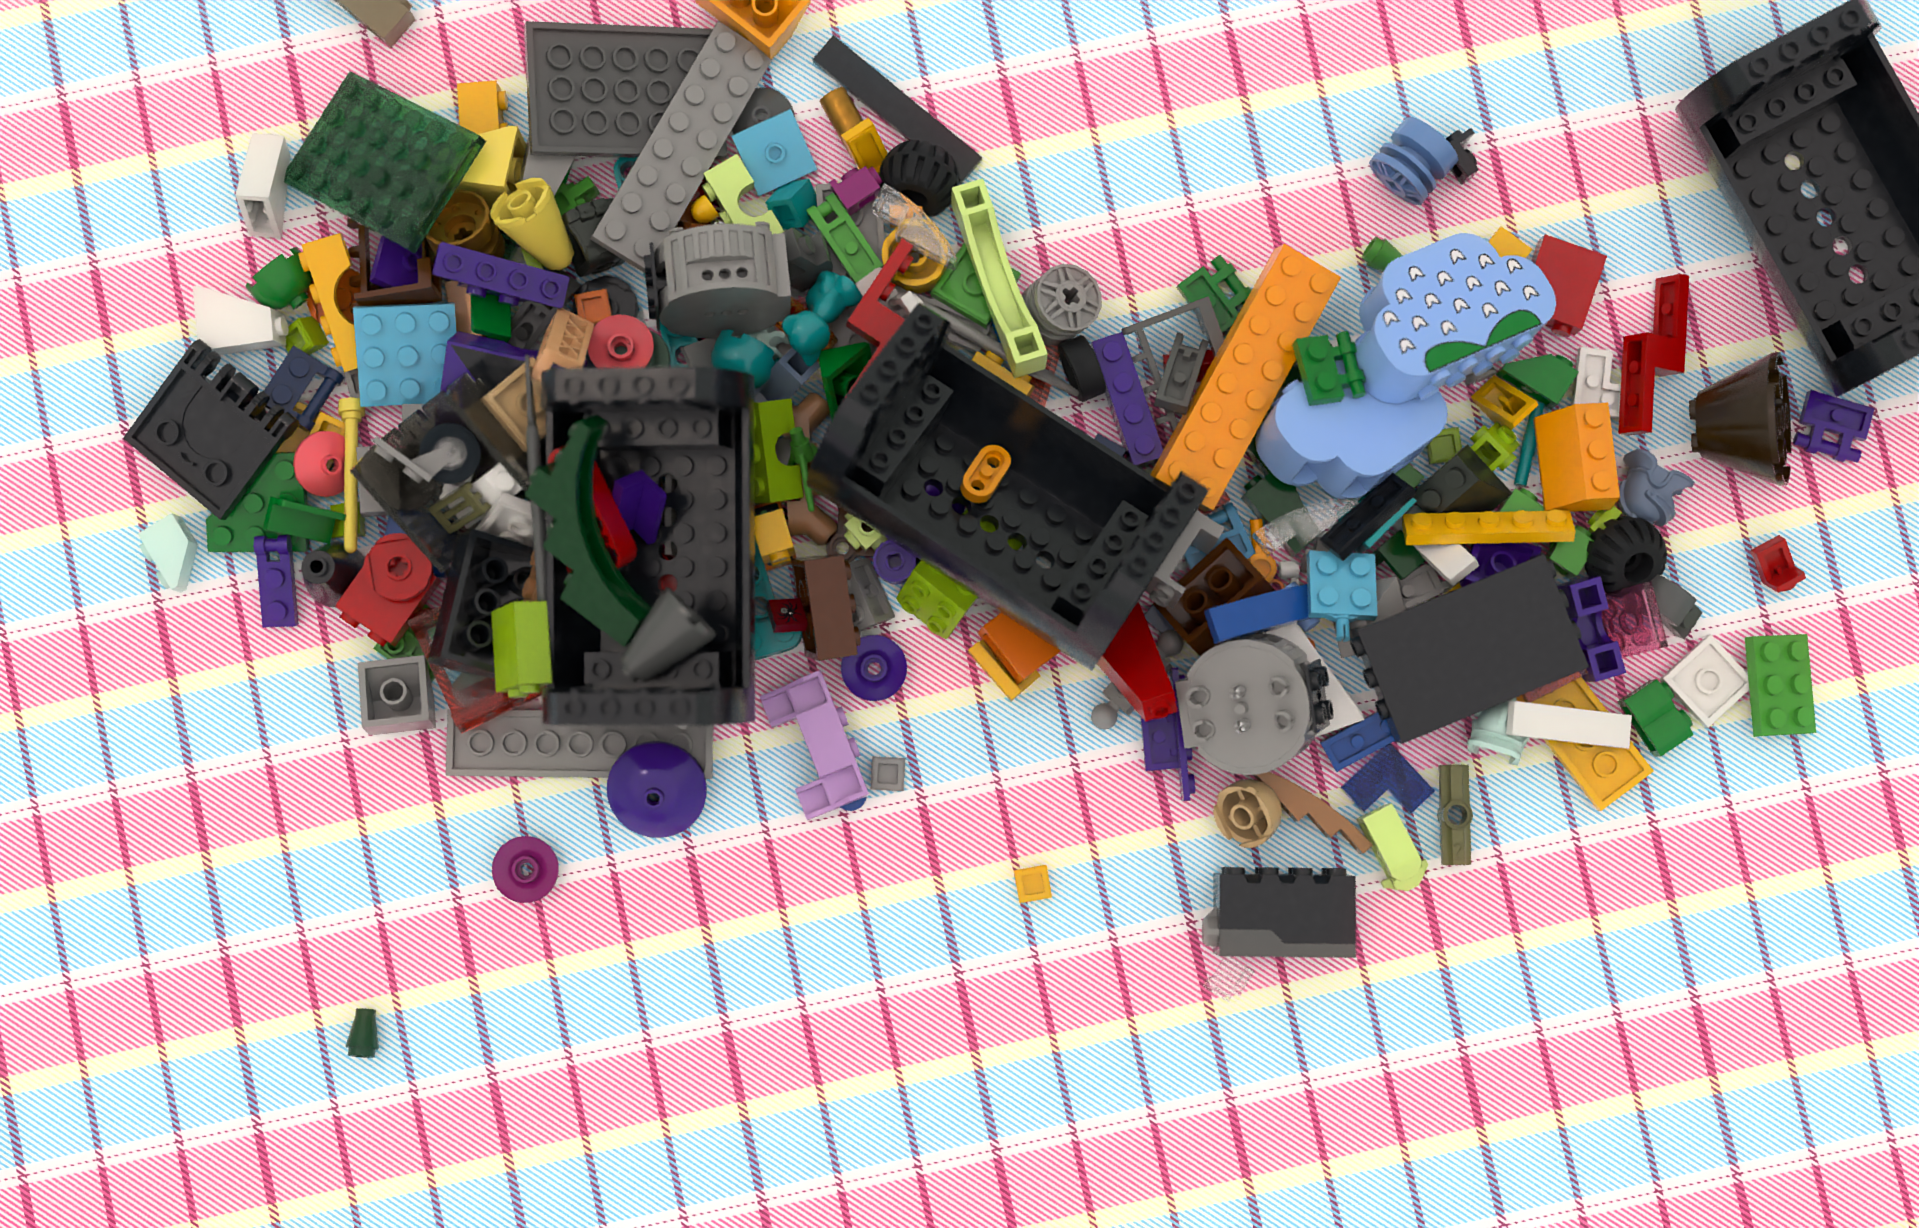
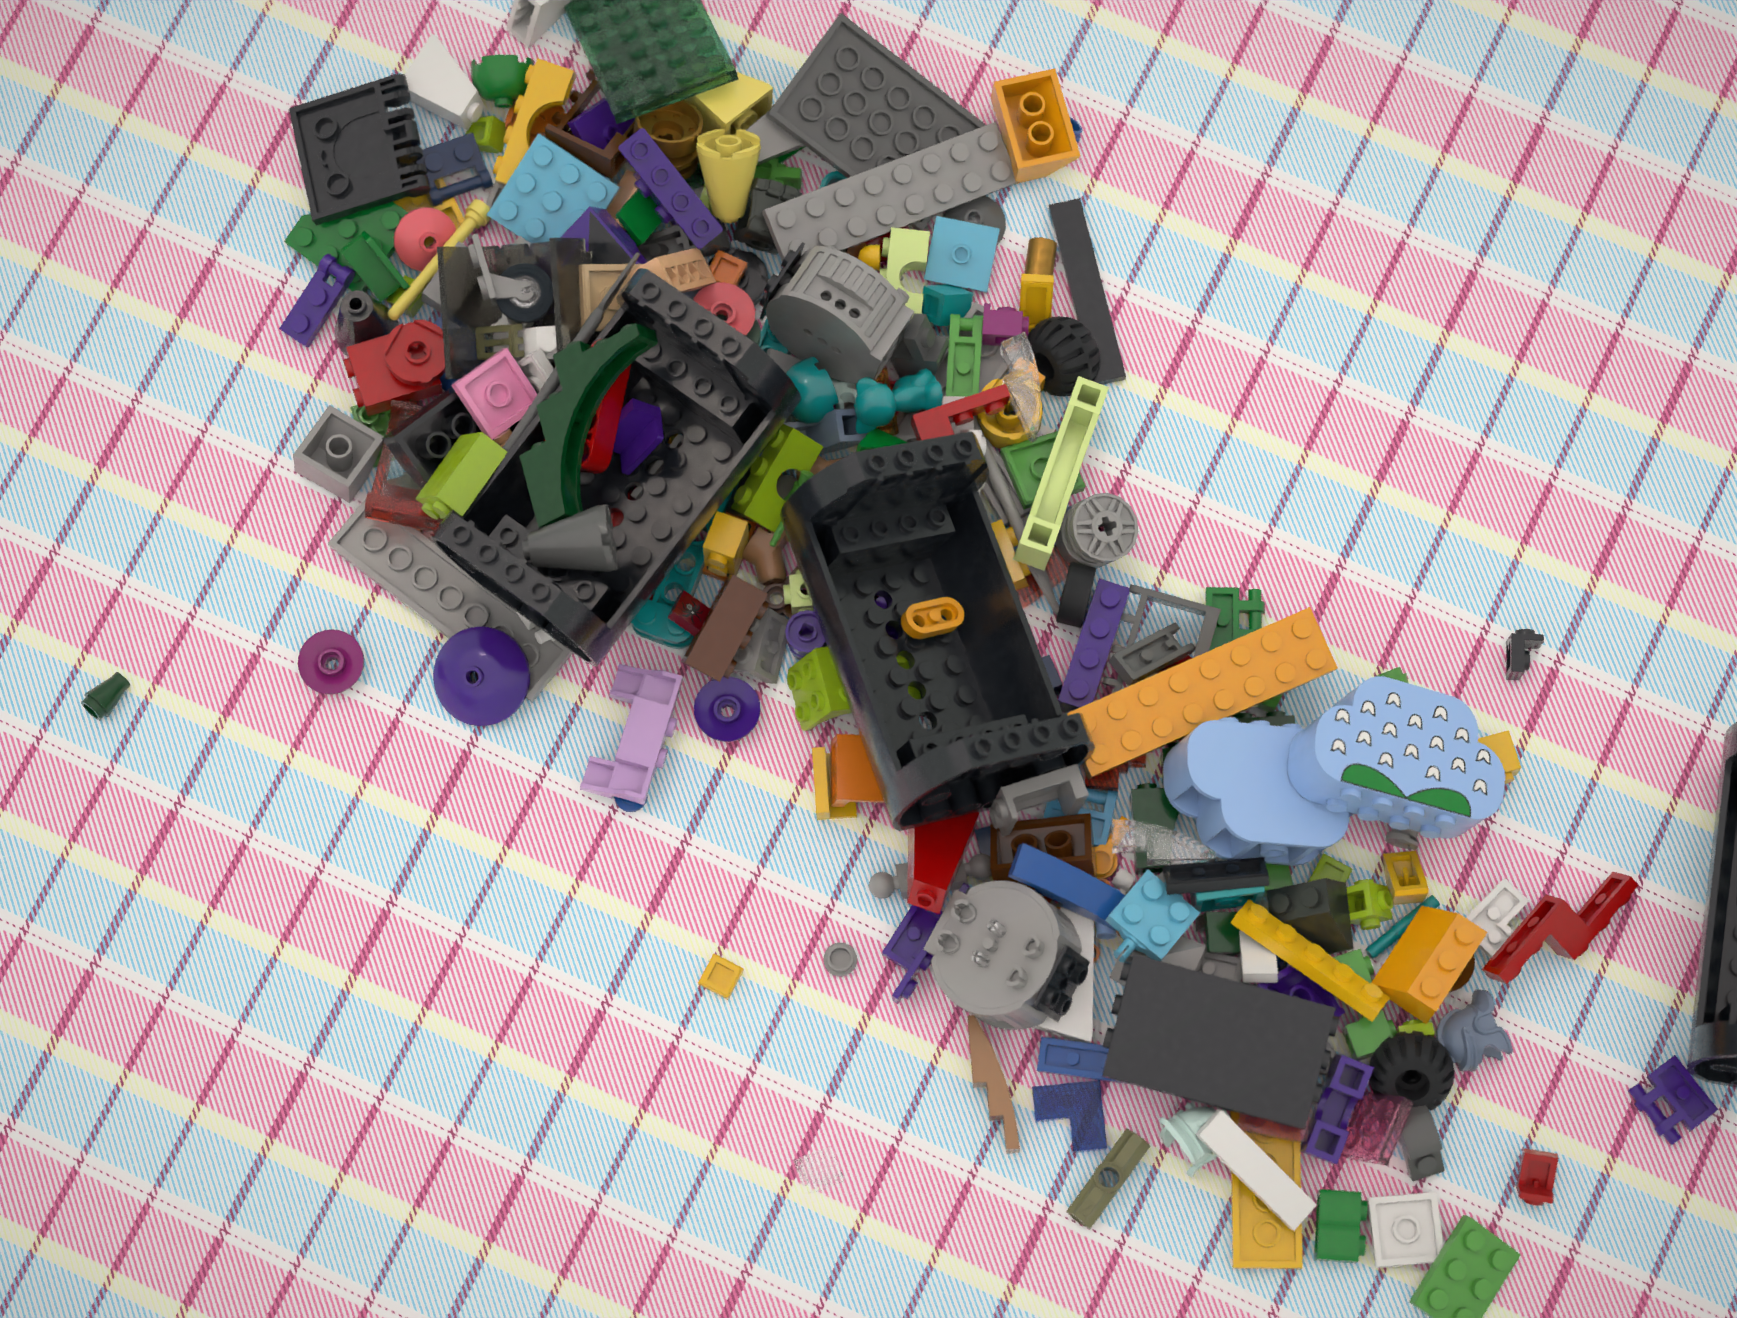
camera: 40 degrees right, 10 degrees down
(172, 550) = (258, 220): light aqua slope -> none
(481, 106) = (760, 56): yellow brick -> none
(494, 555) = (496, 393): none -> bright pink plate
(887, 773) = (673, 802): light grey tile -> none
(1116, 799) = (840, 959): none -> light grey plate
(1248, 812) = (938, 1045): tan cylinder -> none
(1282, 913) = (901, 1146): black piece -> none
(1319, 370) = (1259, 723): green plate -> none
(1393, 848) = (1035, 1168): yellowish green piece -> none
(1413, 160) = (1482, 625): medium blue wheel -> none
(1540, 377) = (1452, 877): green slope -> none
(1574, 278) = (1528, 817): red brick -> none
(1746, 421) = (1599, 1036): dark brown cone -> none

